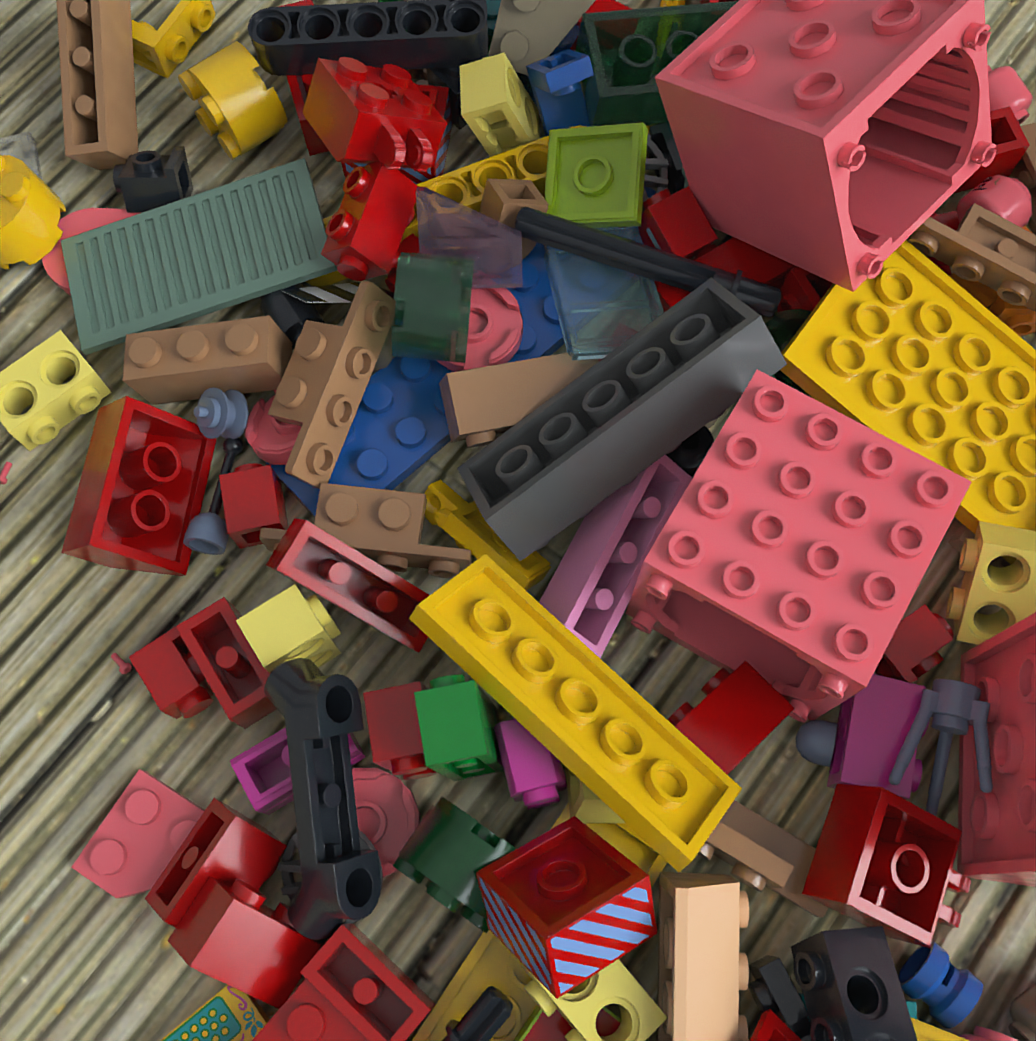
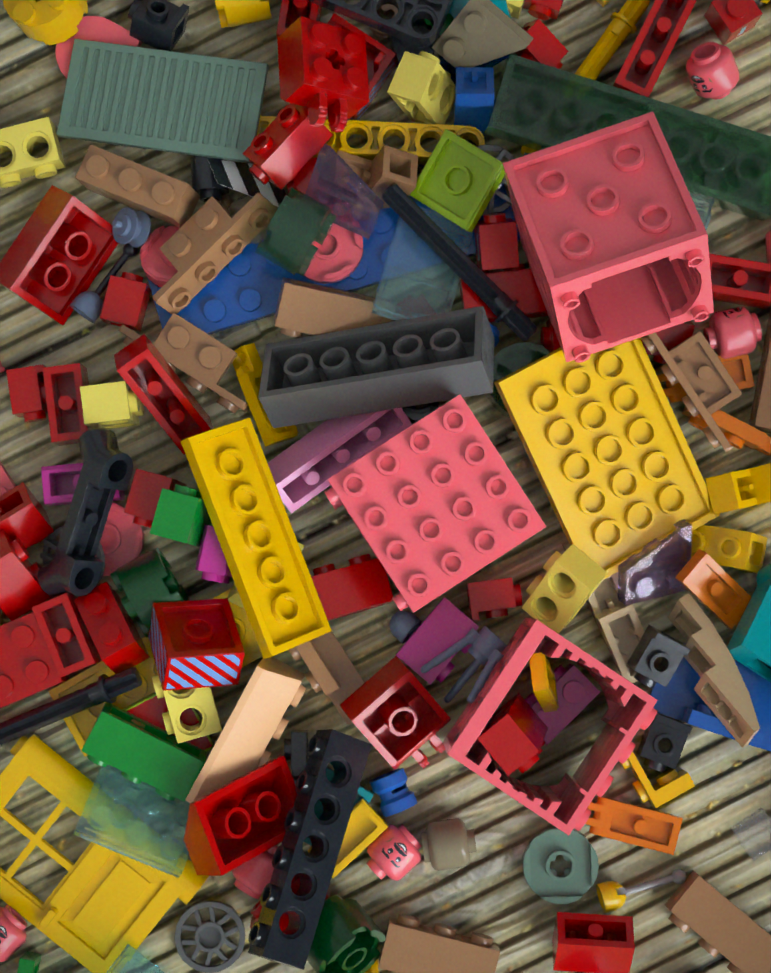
camera: 25 degrees right, 15 degrees up
(430, 946) = (111, 628): none -> red brick

